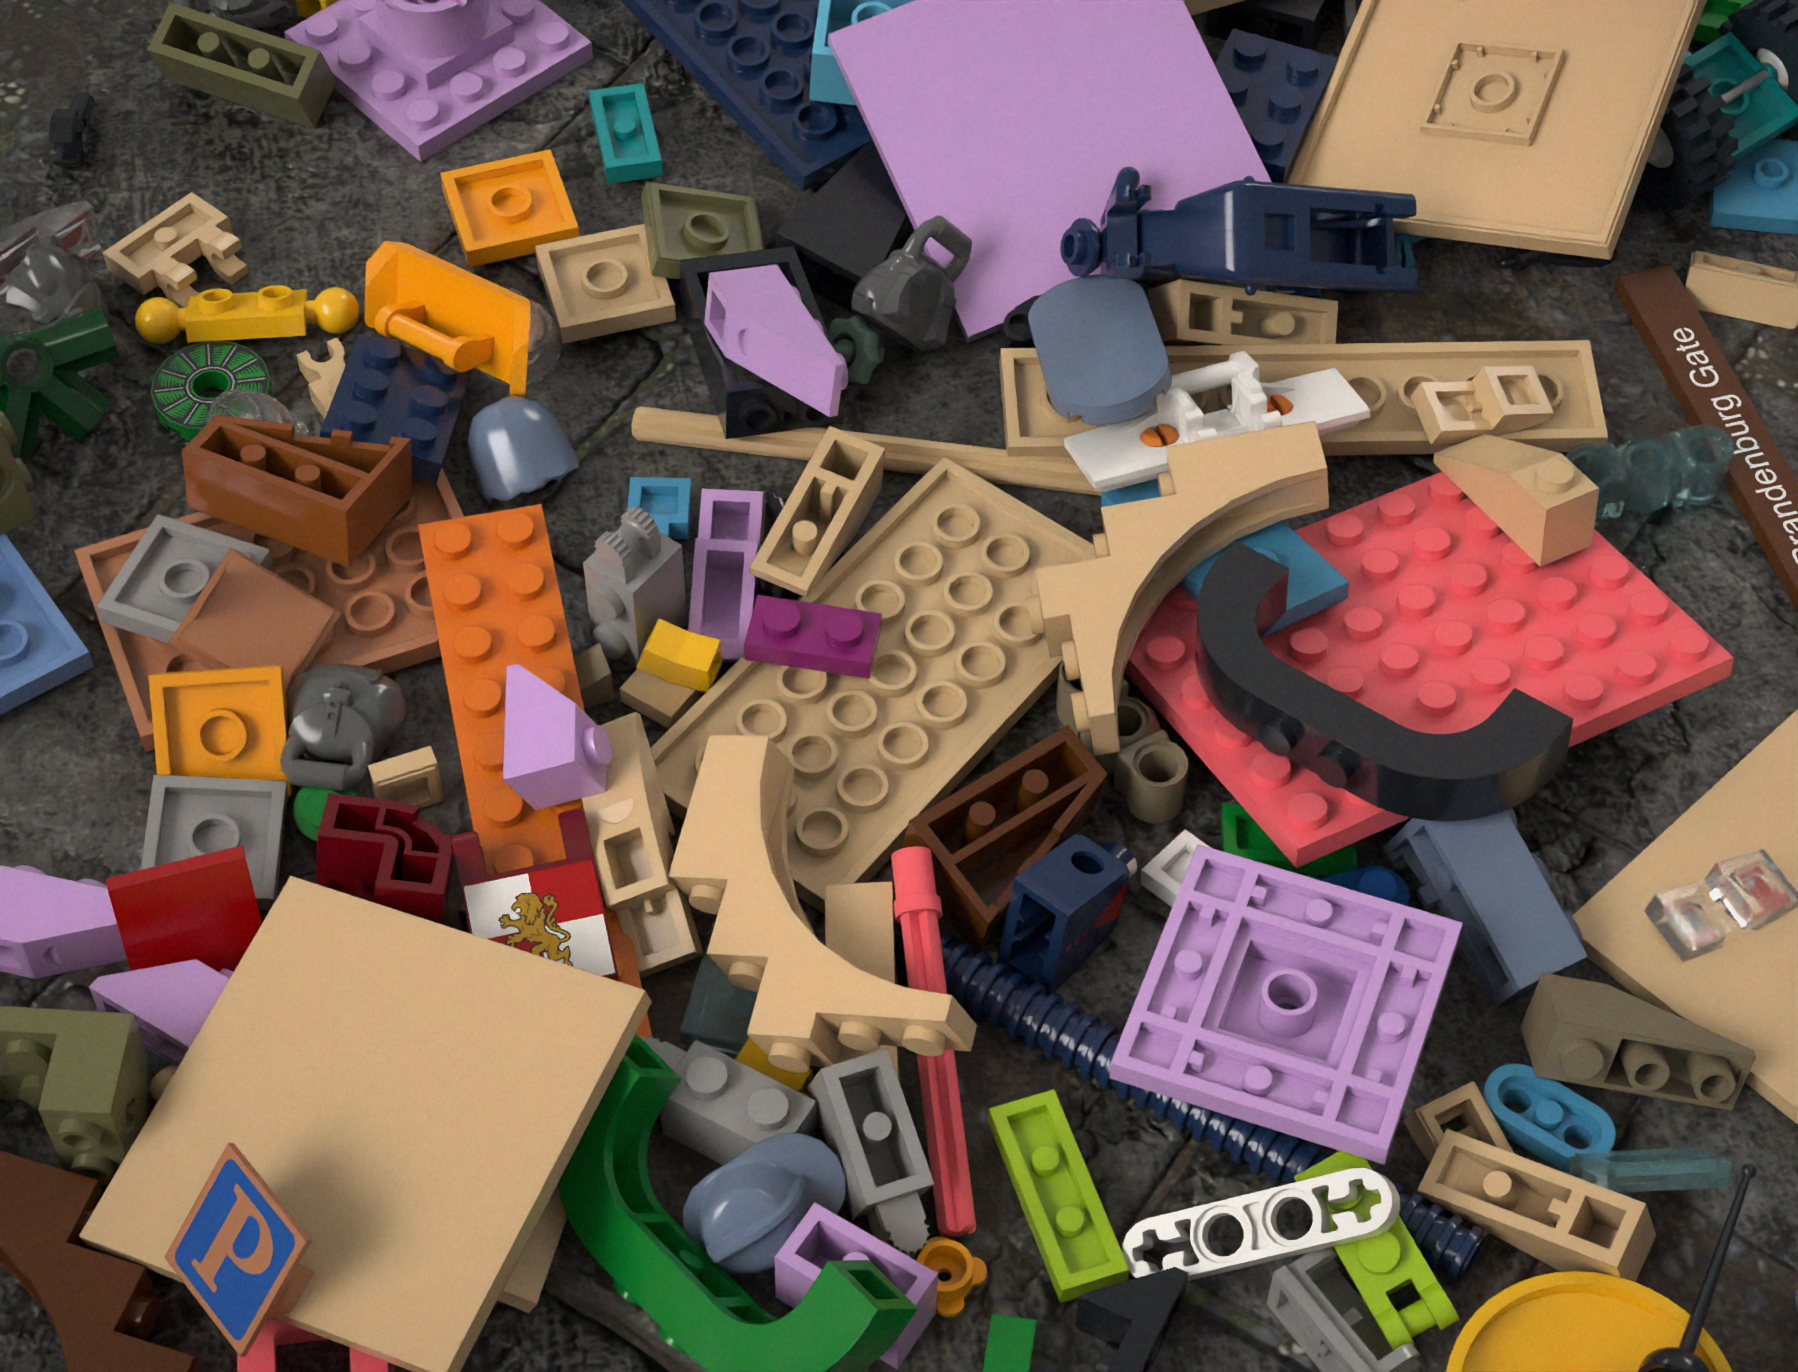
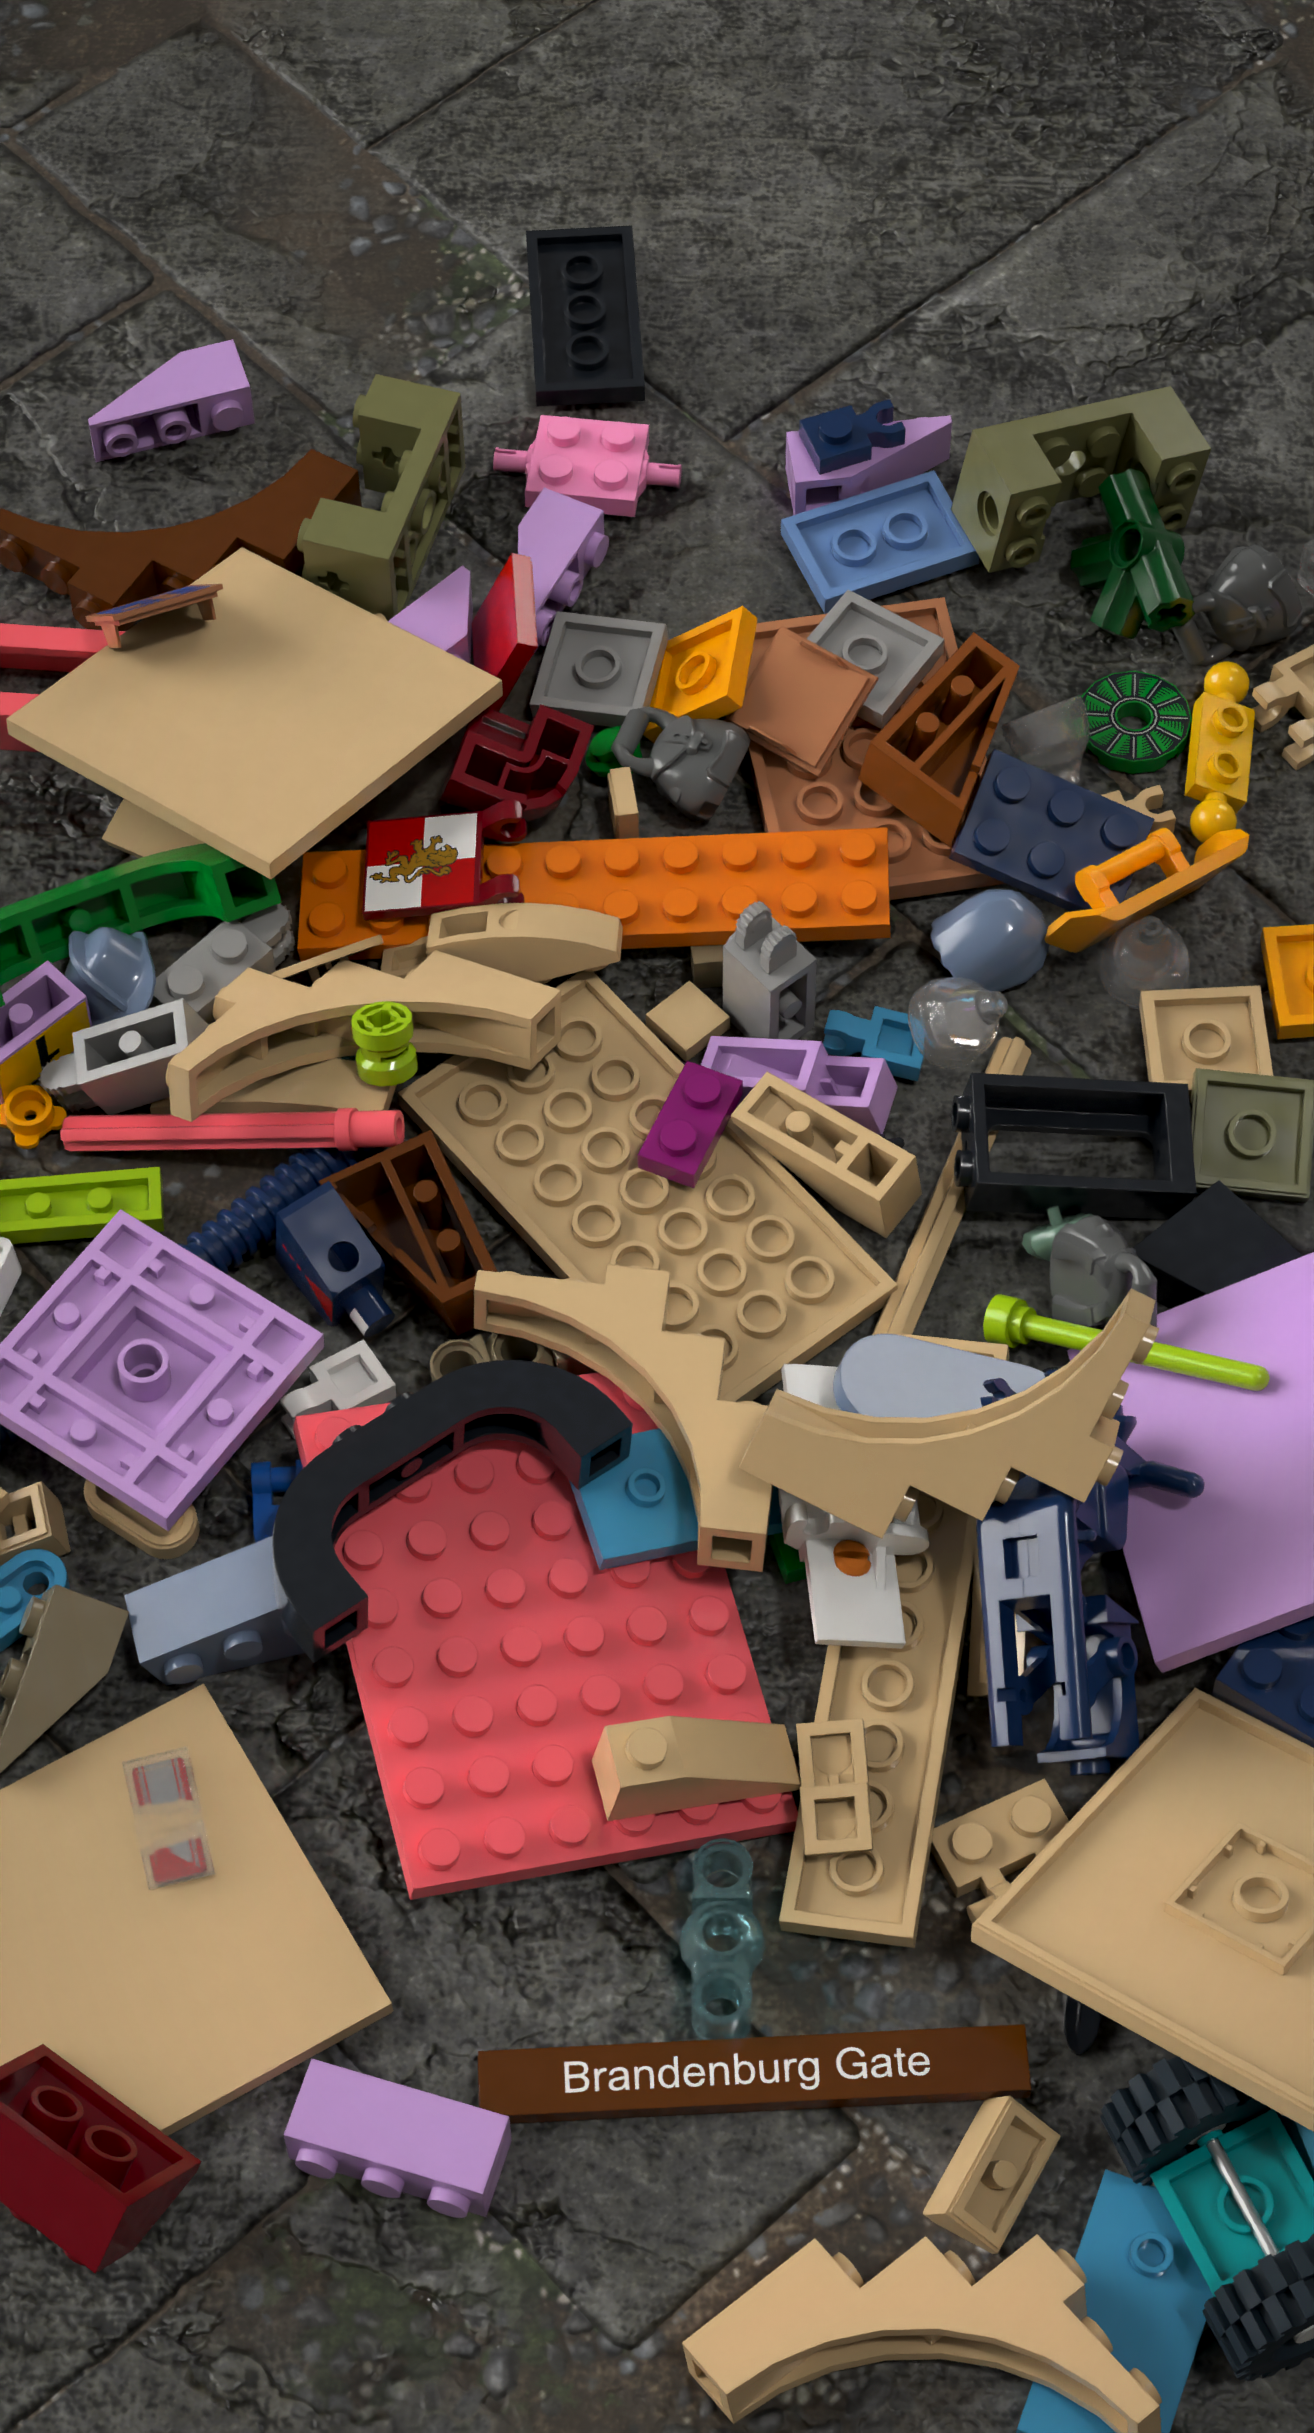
camera: 105 degrees right, 5 degrees up
(550, 744) = (596, 875): lavender slope -> none
(632, 443) = (954, 1020): none -> clear helmet
(681, 656) = (695, 1019): yellow piece -> none
(690, 989) = (325, 959): none -> tan piece
(772, 334) = (1038, 1107): lavender slope -> none
(820, 875) = (385, 1049): none -> lime wheel
(954, 374) = (1012, 1322): none -> lime piece
(1188, 186) = (877, 1466): none -> tan arch
(1450, 312) = (996, 1841): none -> tan plate

